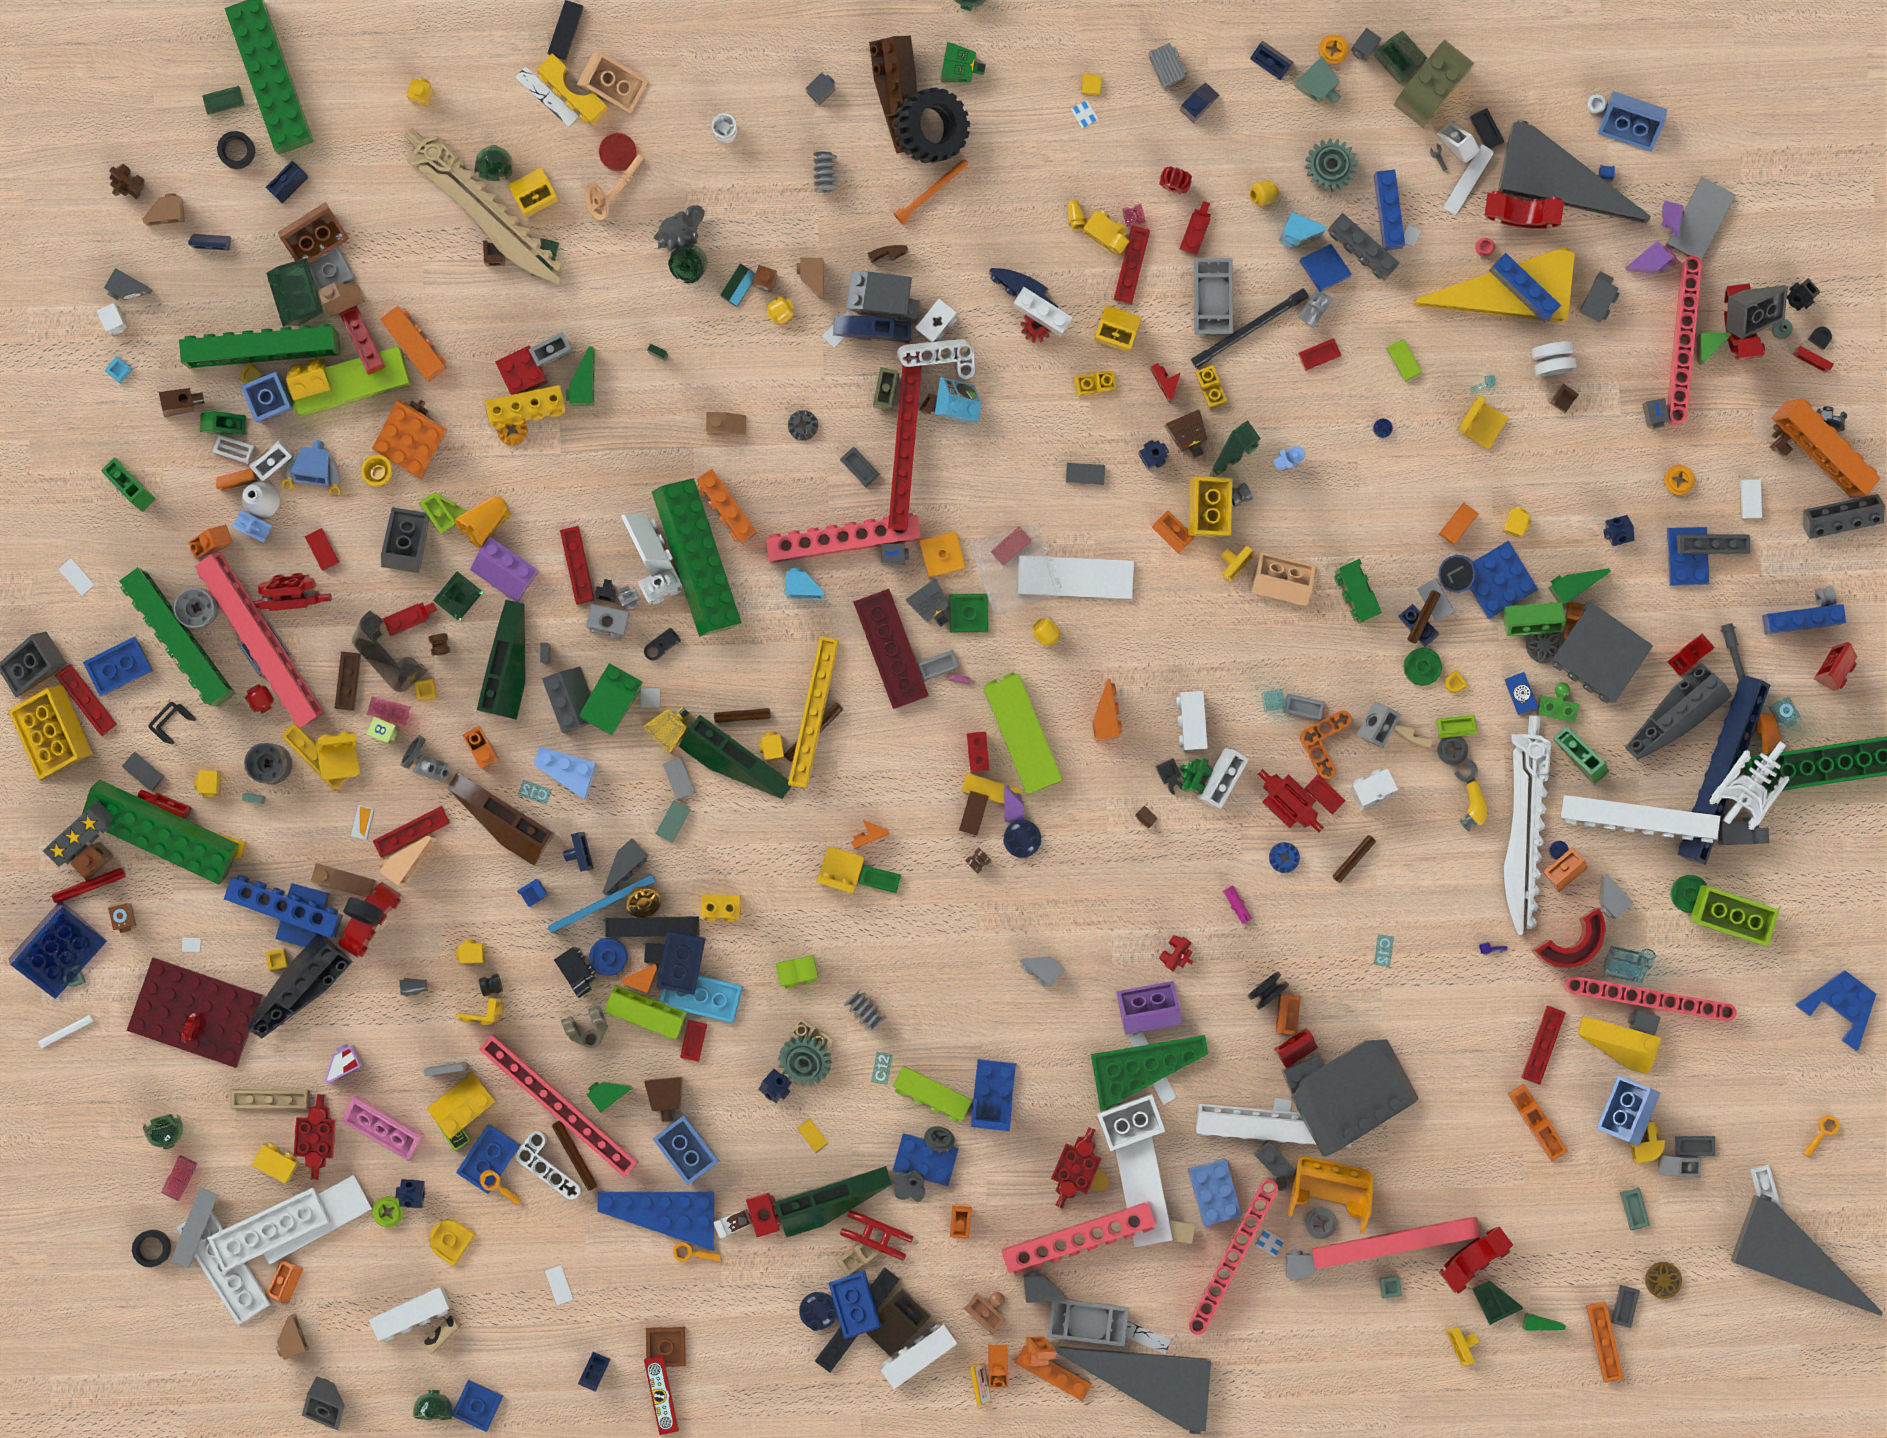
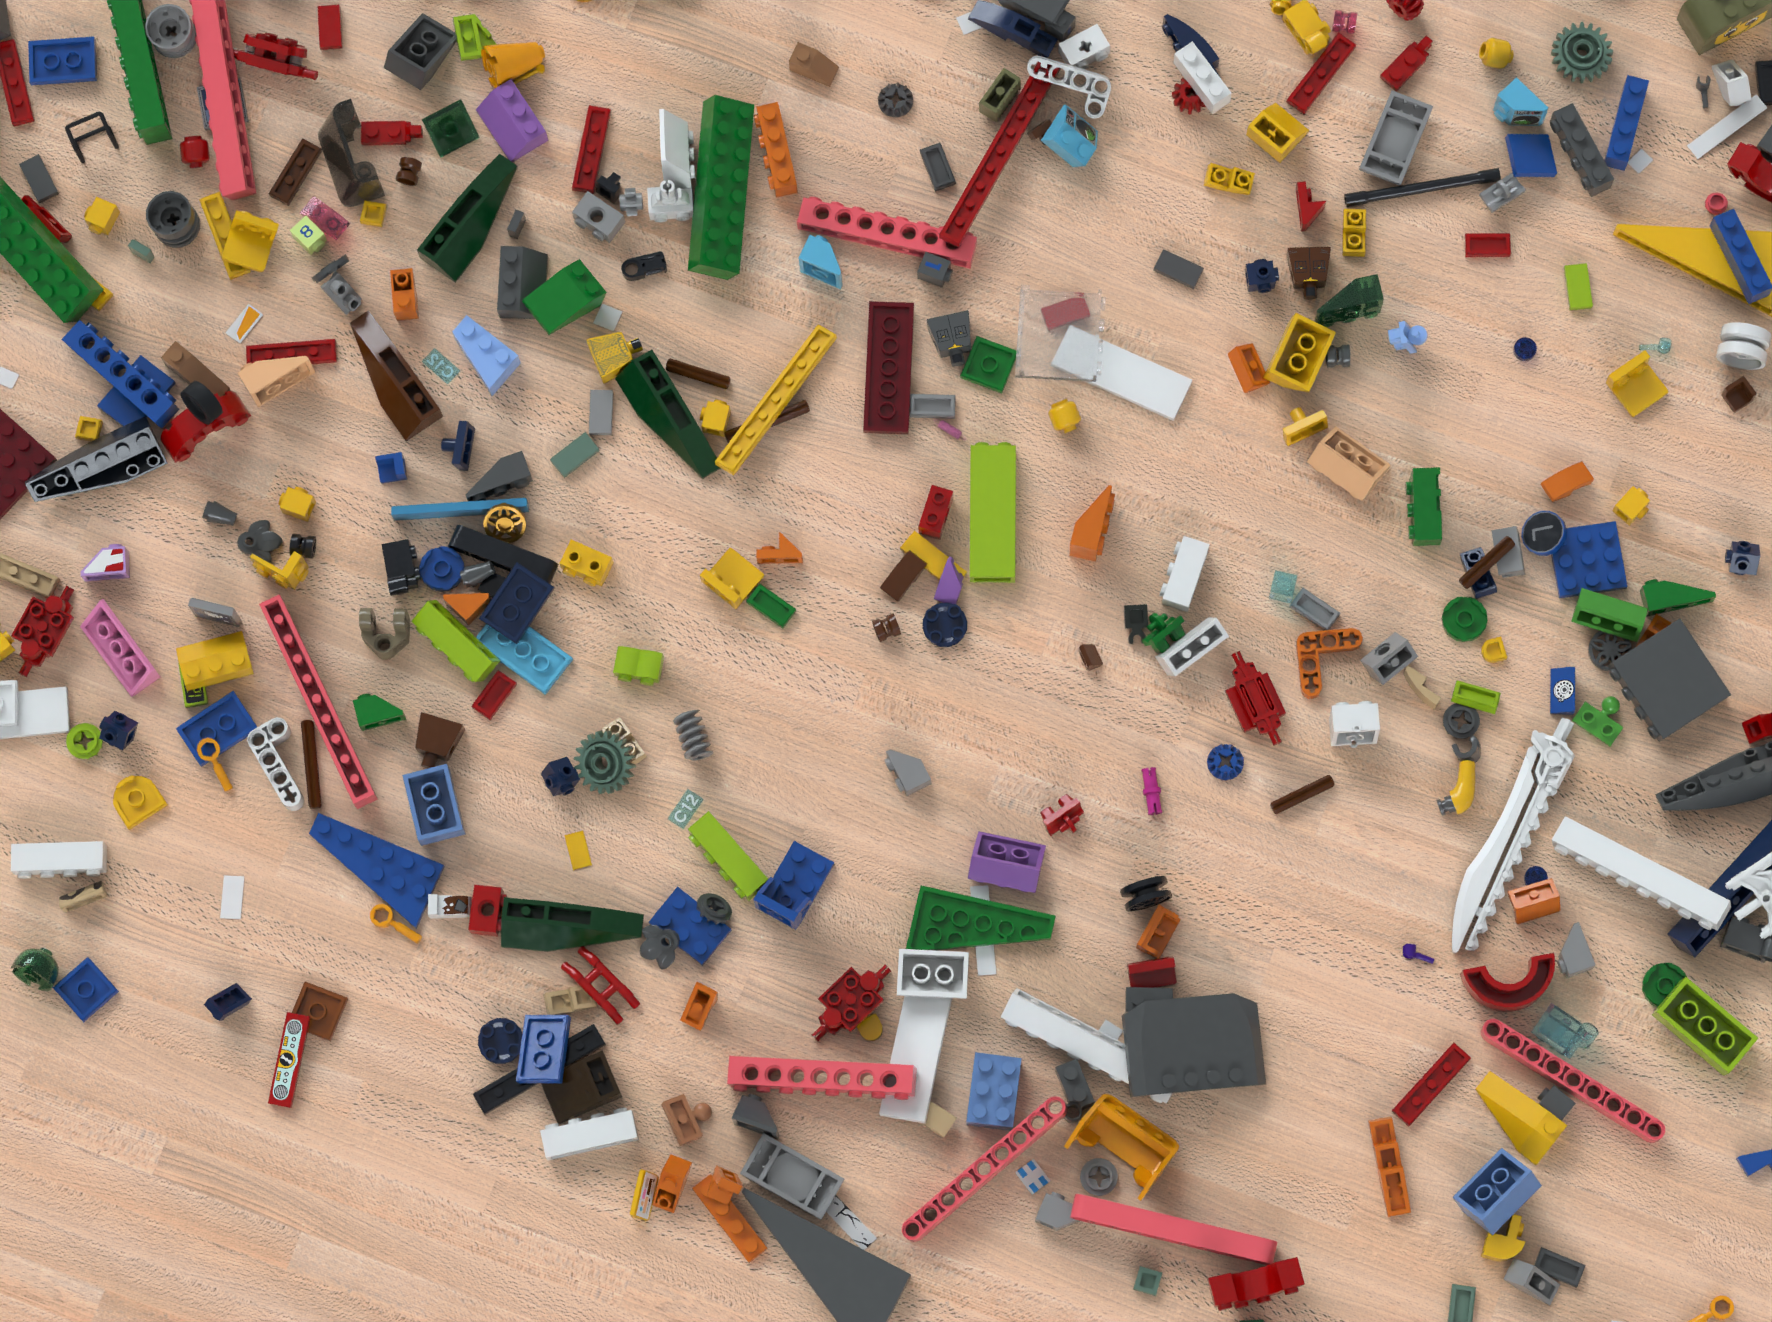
camera: 30 degrees right, 10 degrees down
(456, 992) = (263, 540): none -> dark grey plate
(638, 951) = (477, 573): none -> dark grey cone
(942, 554) = (987, 292): light orange plate -> none
(1324, 794) = (1298, 712): red tile -> none
(1383, 950) = (1294, 908): clear light blue sticker -> none
(1582, 755) = (1603, 784): green slope -> none

